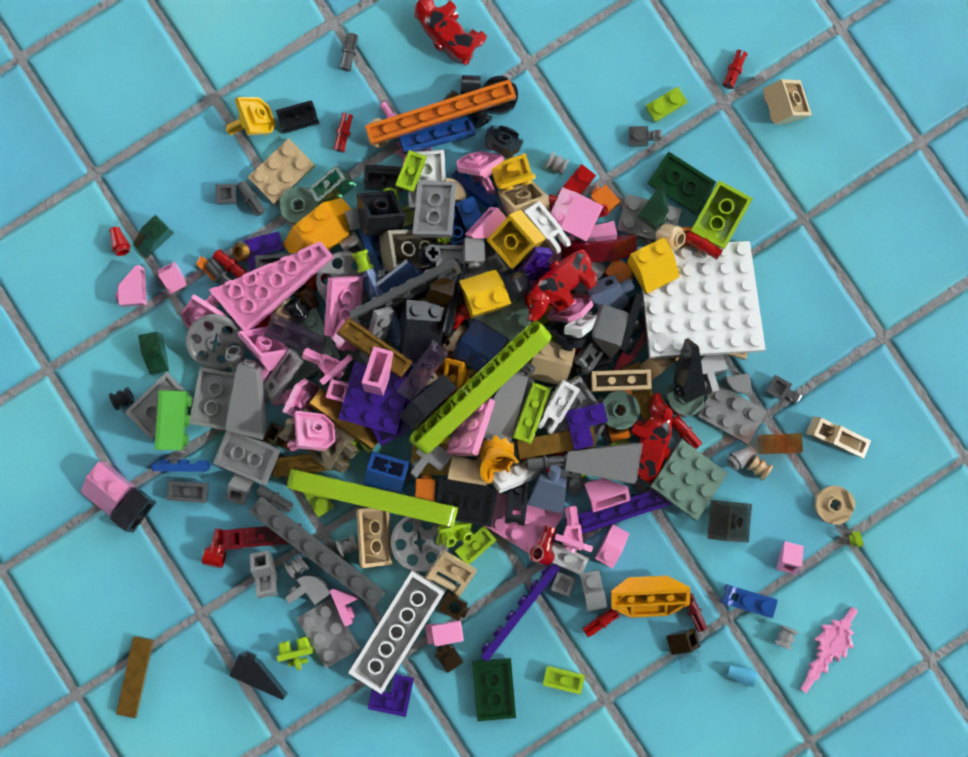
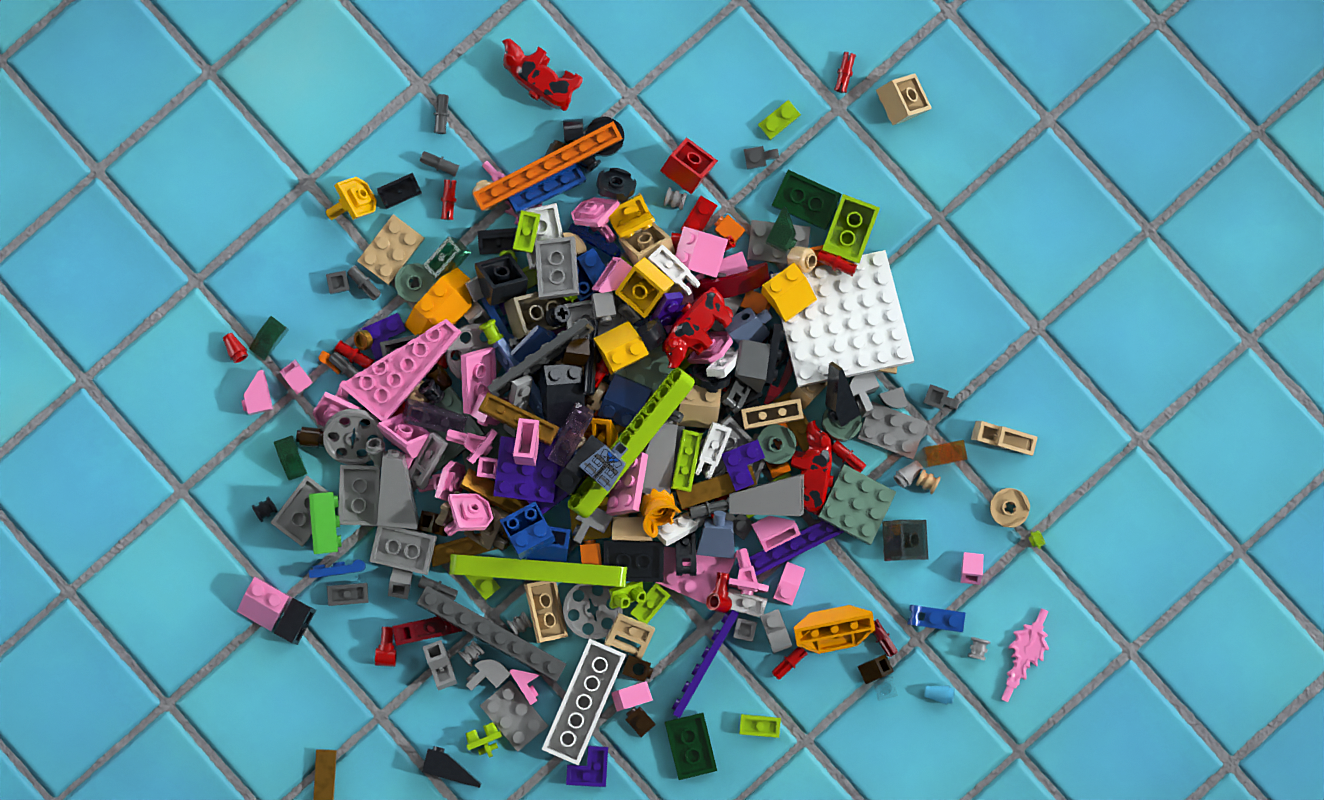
camera: 10 degrees left, 0 degrees up
(175, 336) = (310, 437): none -> dark brown brick
(340, 97) = (439, 163): none -> dark grey axle
(366, 457) = (527, 530): none -> blue slope
(452, 405) = (606, 465): none -> torso
(574, 134) = (688, 165): none -> red slope

